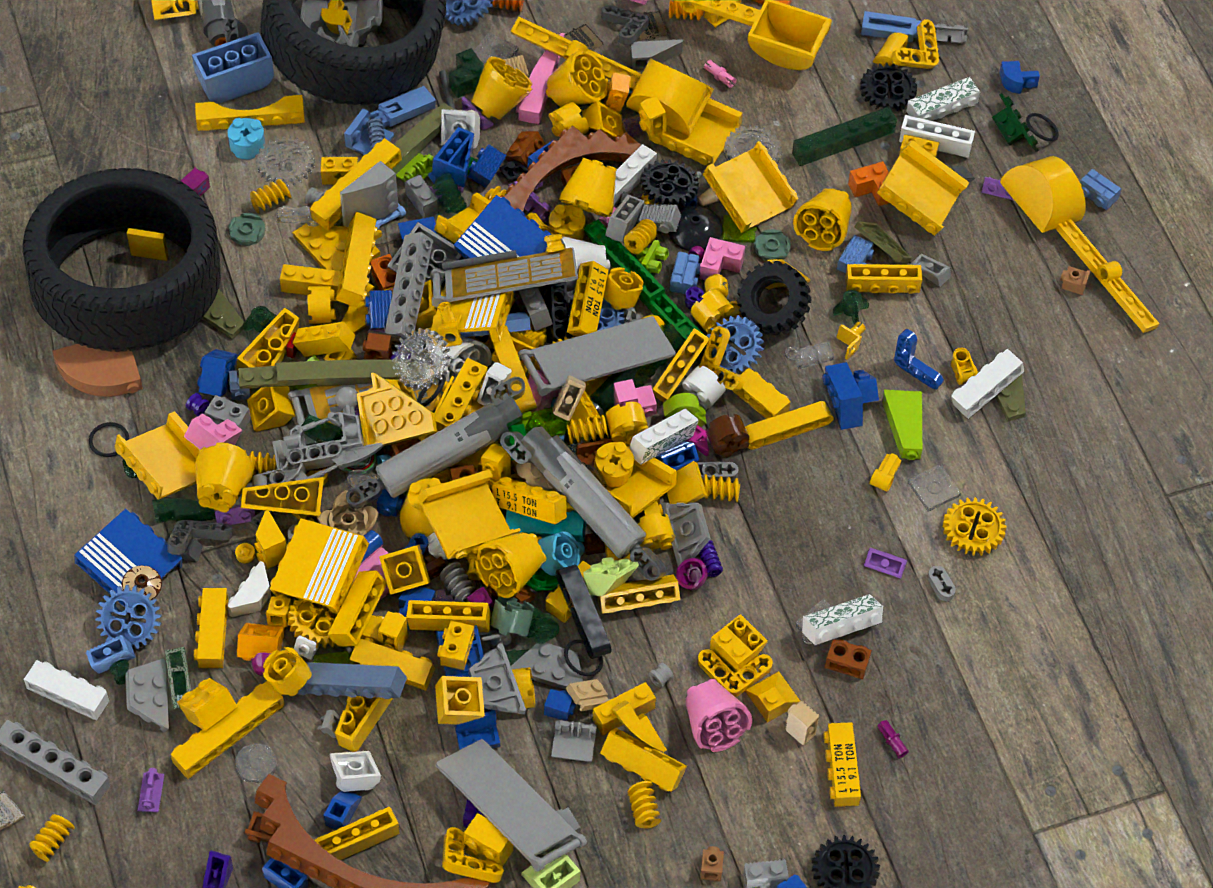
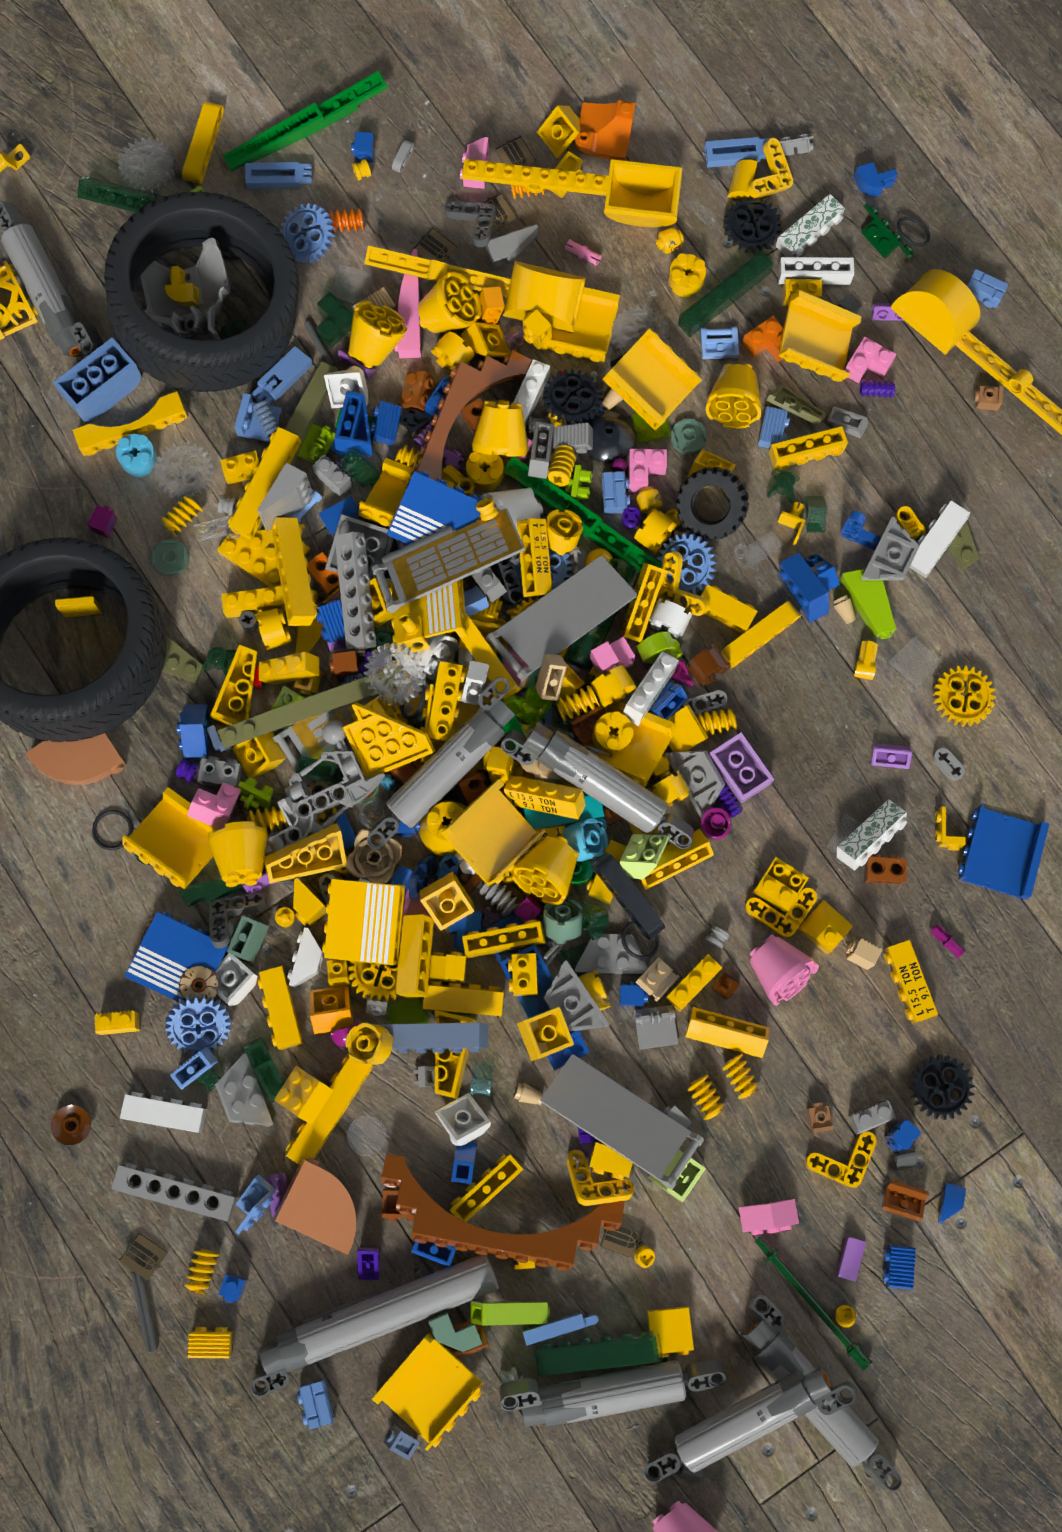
camera: 15 degrees left, 20 degrees up
(52, 599) = (117, 1022): none -> yellow brick
(76, 859) = (232, 1287): none -> blue brick
(125, 787) = (254, 1200): none -> medium blue bracket
(177, 592) = (234, 980): none -> white slope
(186, 806) = (318, 1207): none -> nougat brick
(202, 558) = (247, 939): none -> sand green brick
(251, 440) = (253, 796): none -> lime hips
(300, 296) = (248, 627): none -> dark grey bush
(328, 493) = (346, 831): none -> blue slope
(375, 747) = (481, 1086): none -> clear light blue bush
(387, 544) = (421, 875): none -> dark blue tile
(426, 766) = (527, 1094): none -> tan cone
(602, 814) = (706, 1097): none -> yellow piece
(638, 725) = (714, 1002): yellow slope -> none
(658, 721) = (725, 986): none -> reddish brown tile
(731, 532) = (741, 768): none -> lavender brick
(805, 82) = (669, 240): none -> yellow head
(812, 112) = (687, 275): none -> yellow brick
(826, 179) = (721, 347): none -> light blue plate
(874, 339) = (815, 514): none -> clear green slope
(878, 423) = (845, 609): none -> tan cone
(919, 649) = (951, 842): none -> yellow bracket
(936, 383) = (892, 554): none -> light grey wing
(966, 218) = (869, 357): none -> bright pink brick
(967, 247) = (877, 388): none -> dark purple piece
(971, 674) = (1003, 853): none -> blue panel

